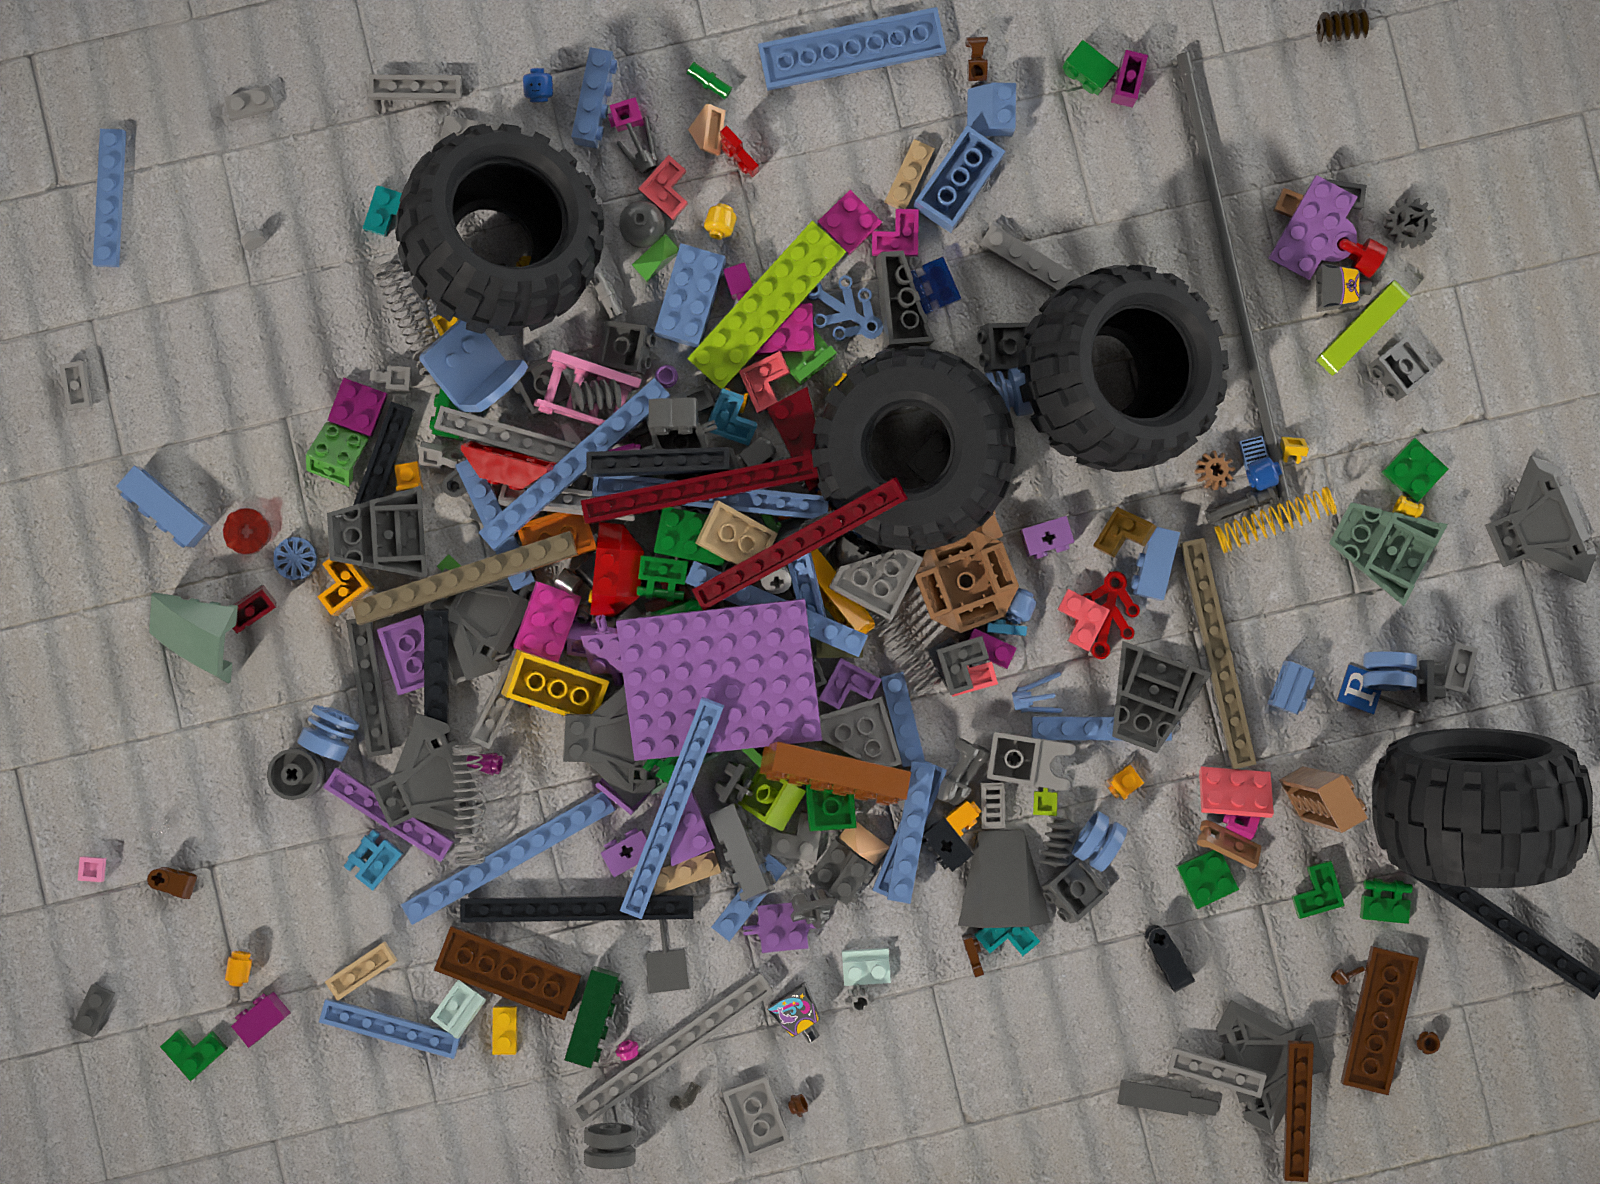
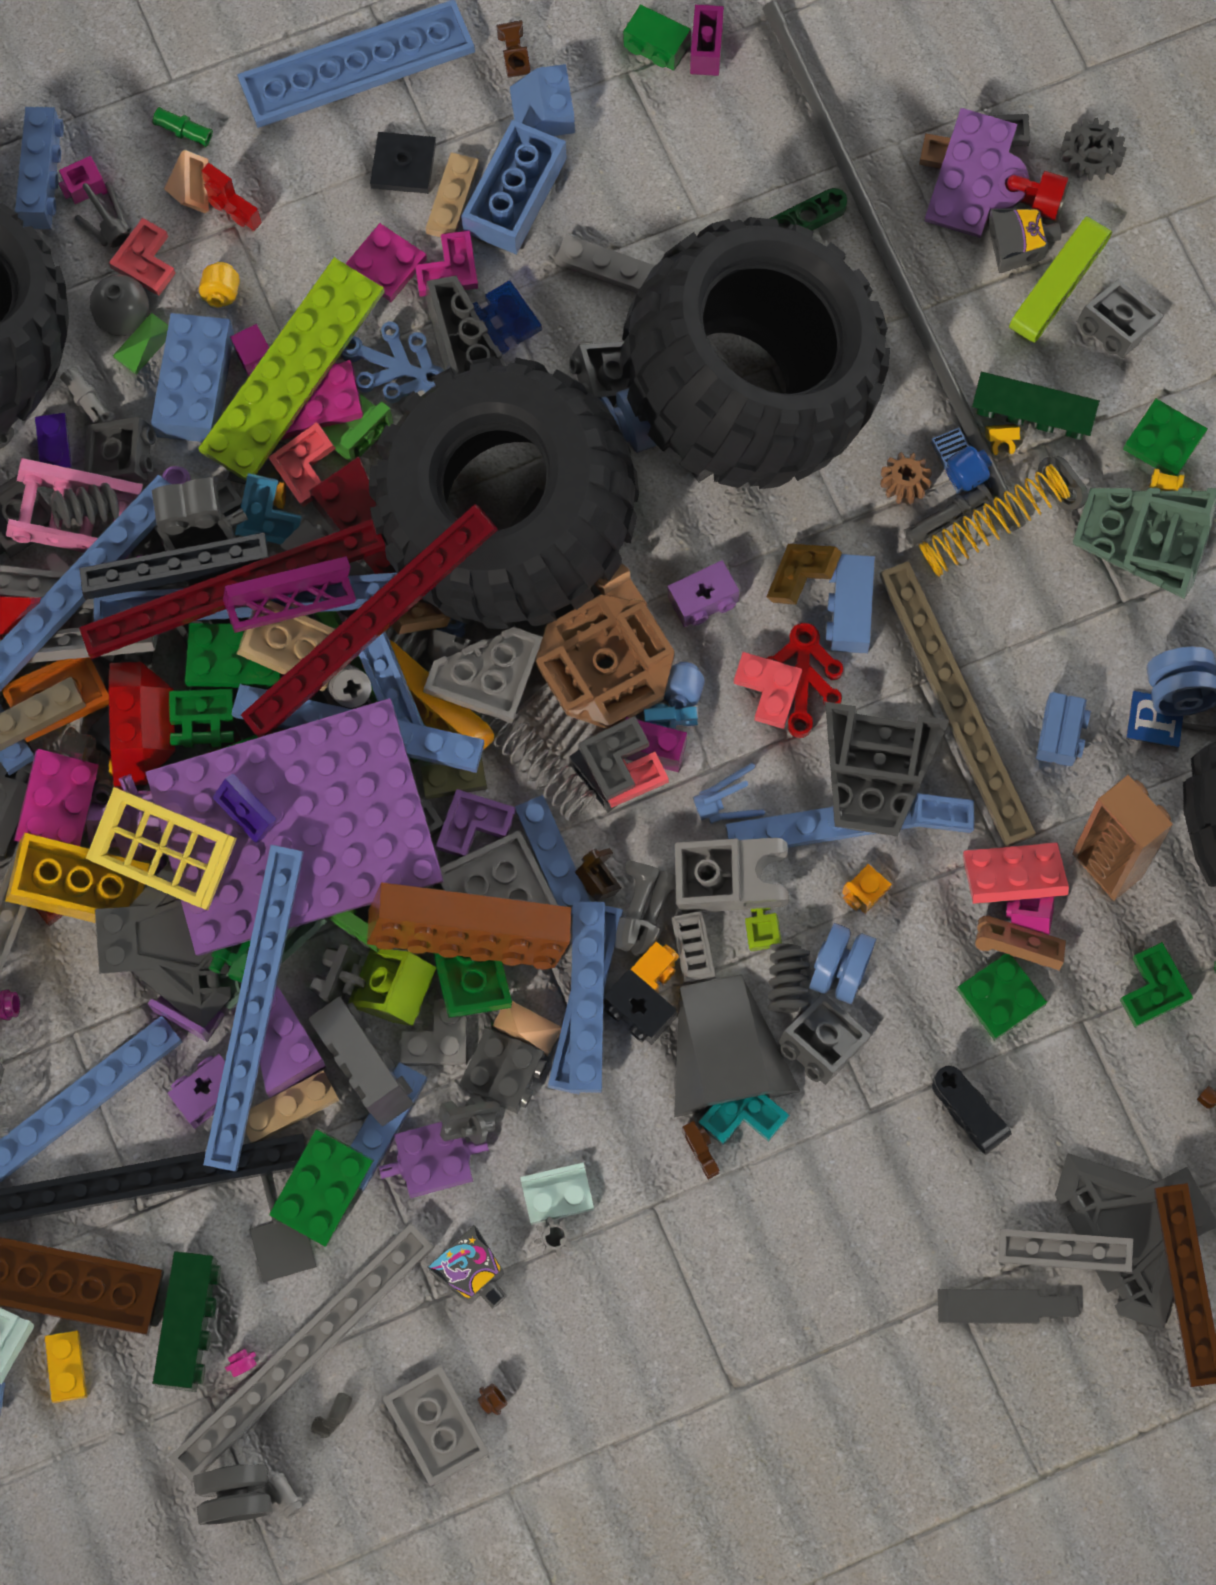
camera: 10 degrees left, 15 degrees down
(578, 330) = (53, 440): none -> dark purple plate
(645, 1147) = (284, 1496): none -> light grey pin
(656, 706) = (213, 869): none -> light yellow piece
(685, 666) = (244, 808): none -> dark purple plate
(701, 937) = (321, 1187): none -> green plate
(739, 497) = (288, 583): none -> magenta fence
(875, 140) = (403, 162): none -> black plate
(932, 741) = (596, 876): none -> dark brown bracket
(1169, 244) = (792, 215): none -> dark green beam
(1192, 736) = (943, 813): none -> medium blue plate
(1323, 429) = (1035, 404): none -> dark green brick
(1336, 492) = (1071, 480): none -> dark grey plate

